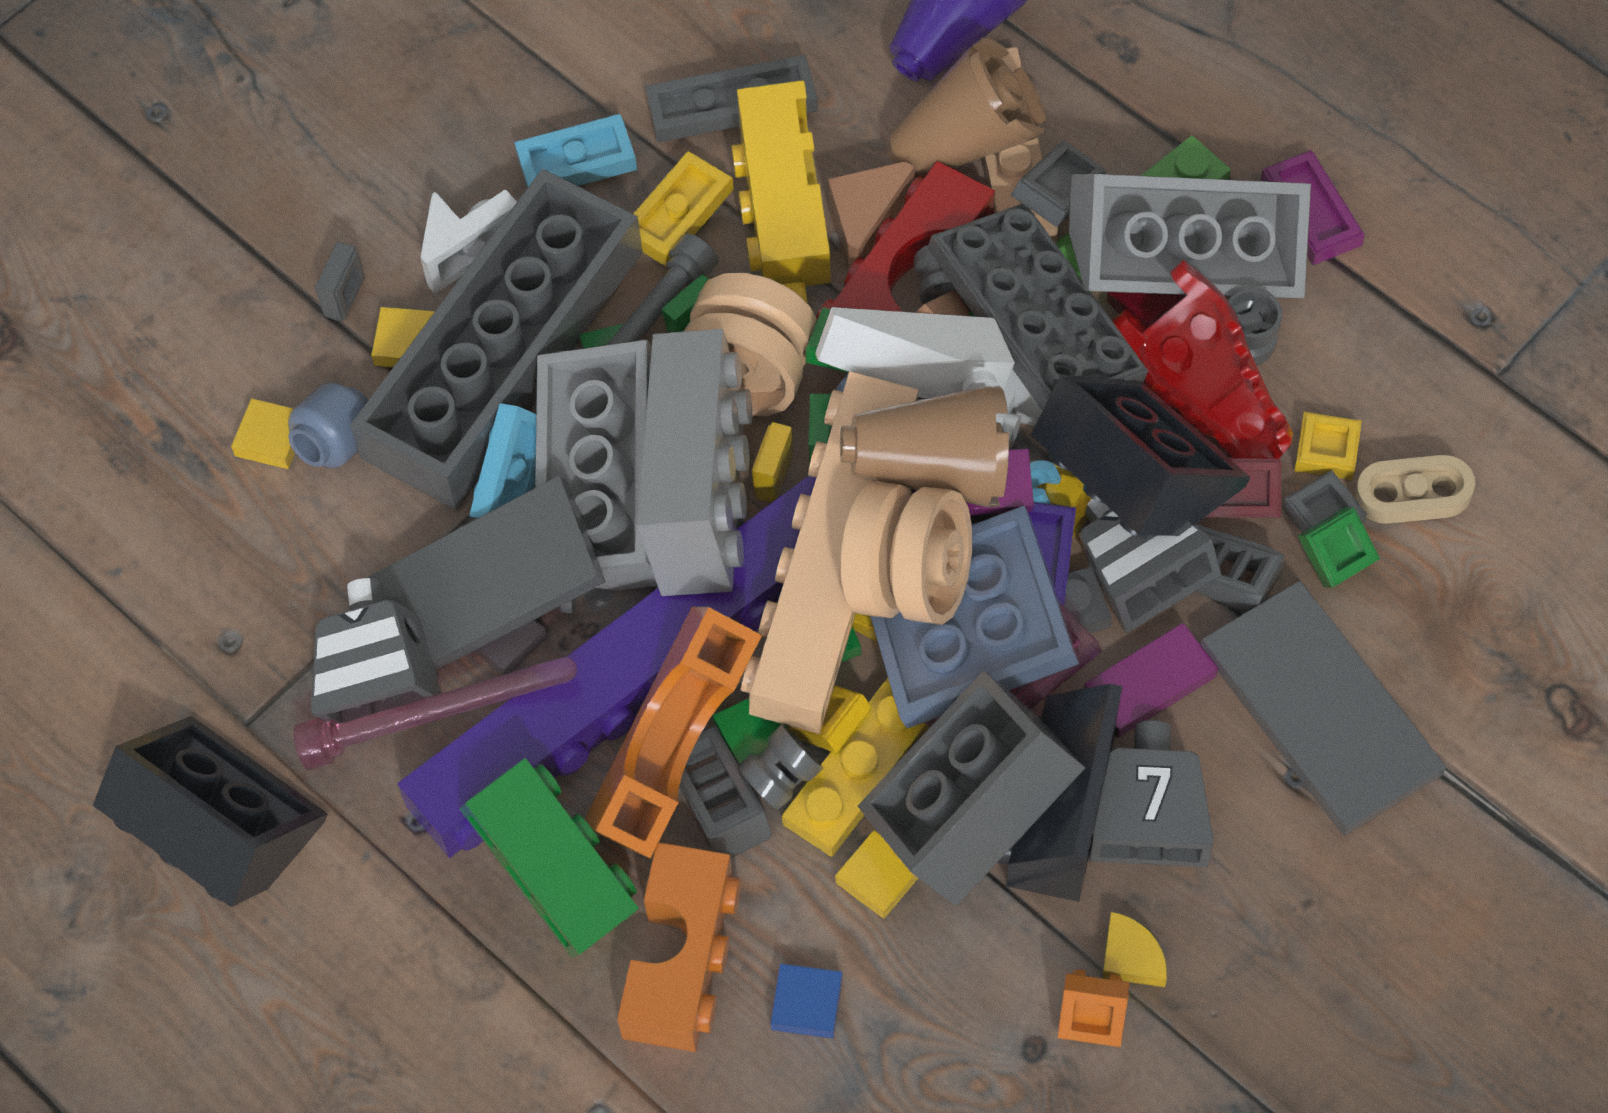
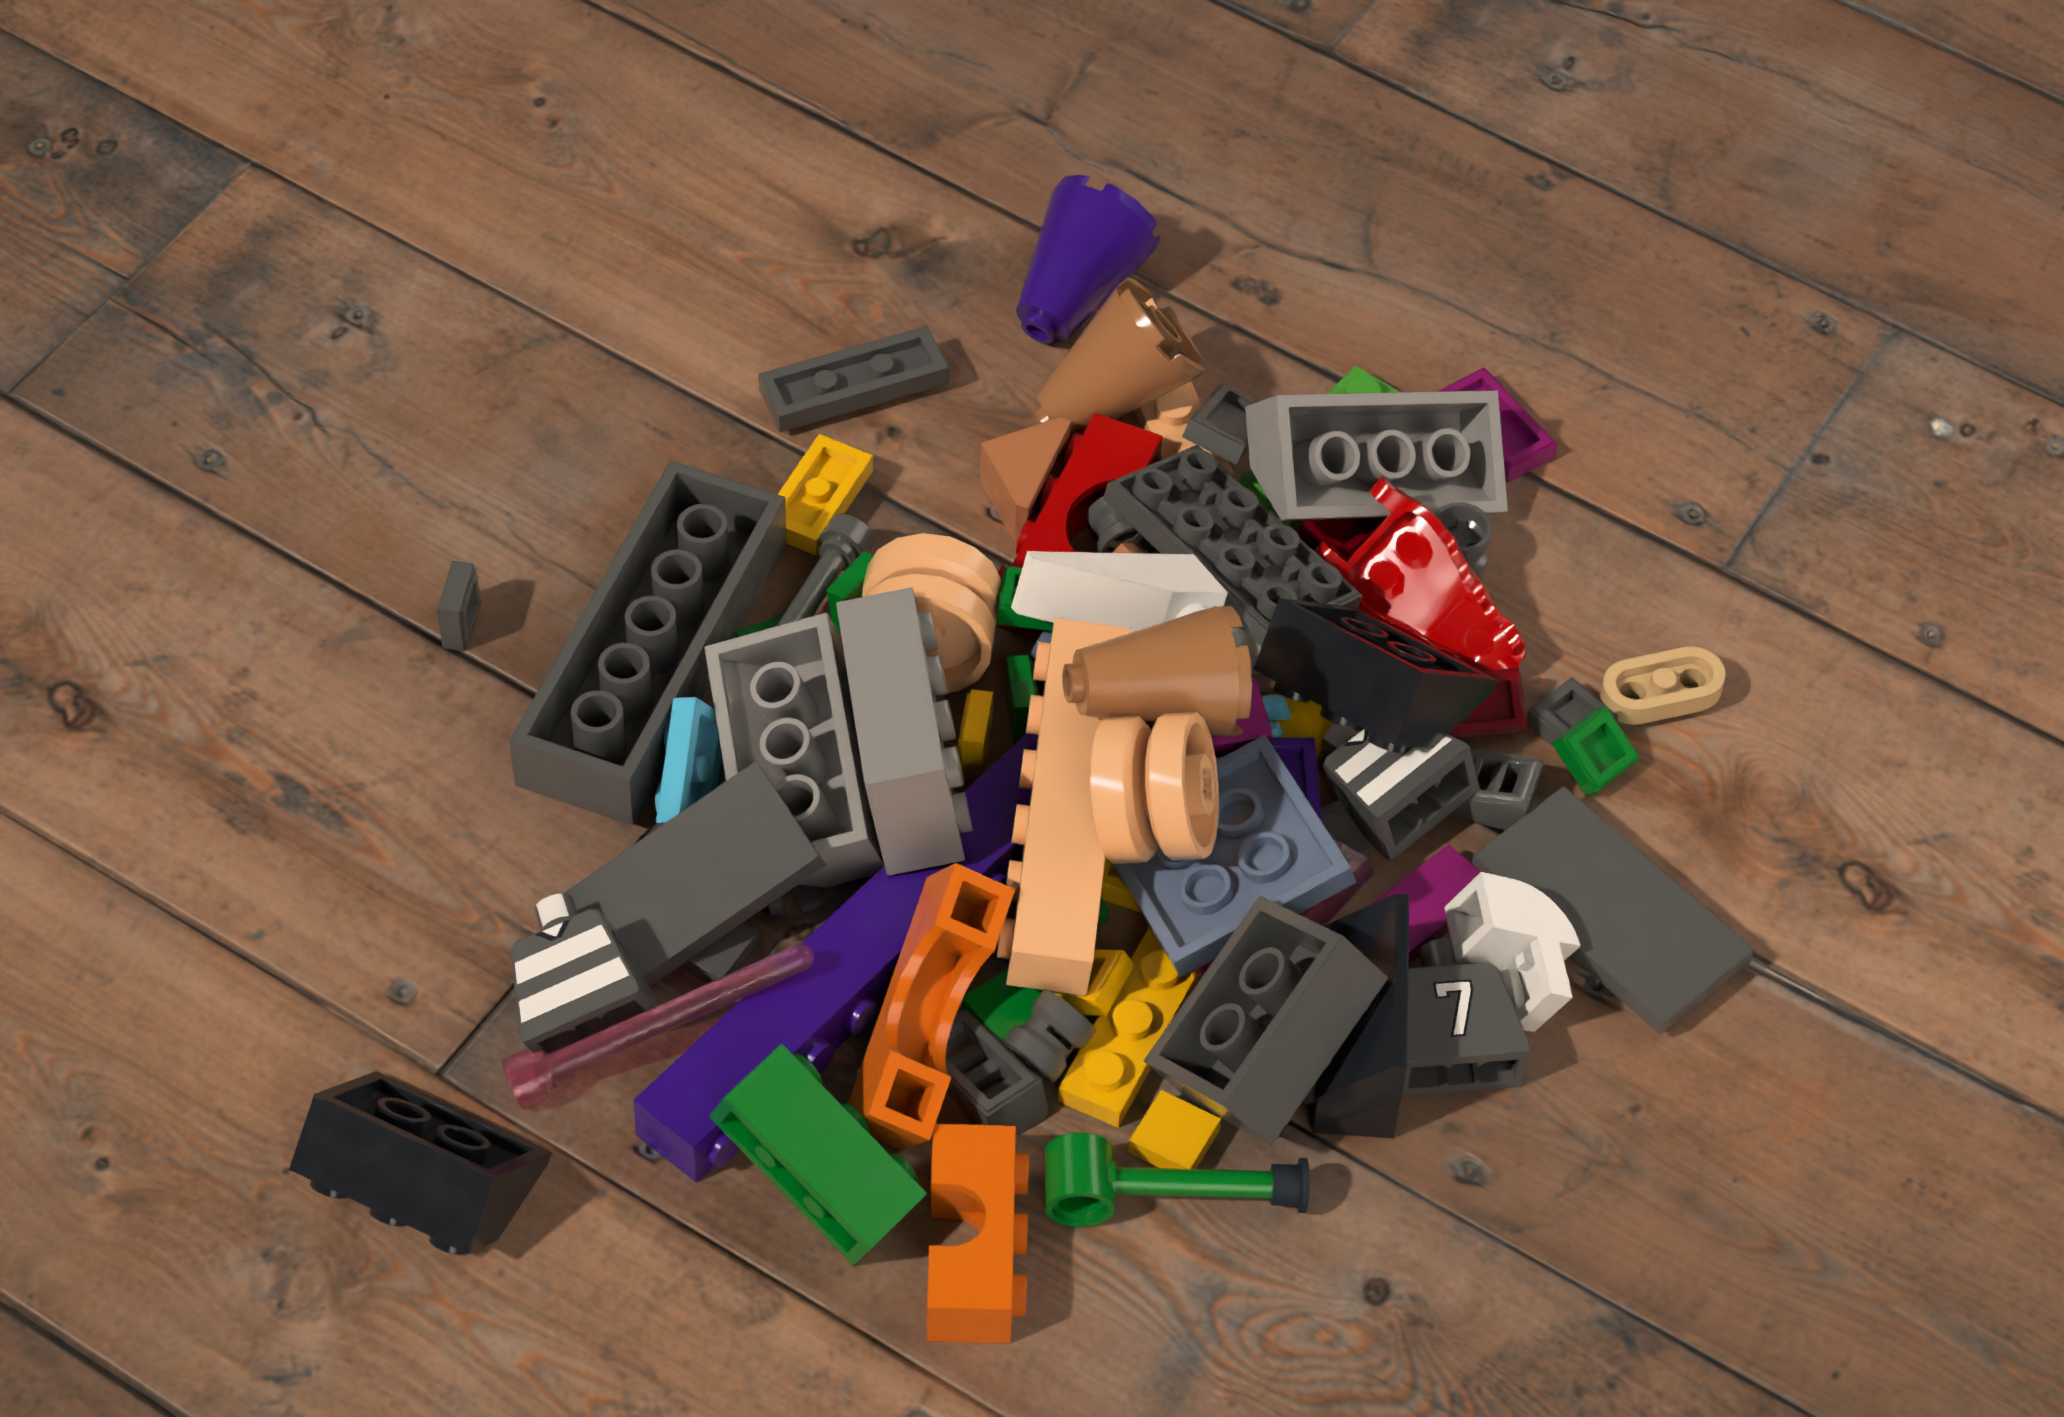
camera: 15 degrees left, 10 degrees down
(264, 435) = (407, 771): yellow tile -> none
(322, 423) = (475, 752): sand blue head -> none
(395, 333) = (533, 653): yellow tile -> none
(453, 242) = (584, 551): white slope -> none
(579, 152) = (712, 443): medium azure plate -> none
(781, 186) = (926, 450): yellow wedge -> none
(786, 910) = (1084, 1181): none -> green piece
(806, 1001) = (1123, 1272): blue tile -> none
(1093, 1009) = (1435, 1236): orange tile -> none
(1133, 953) = (1463, 1179): yellow tile -> none
(1229, 726) = (1522, 936): none -> white brick
(1328, 445) = (1561, 653): yellow tile -> none

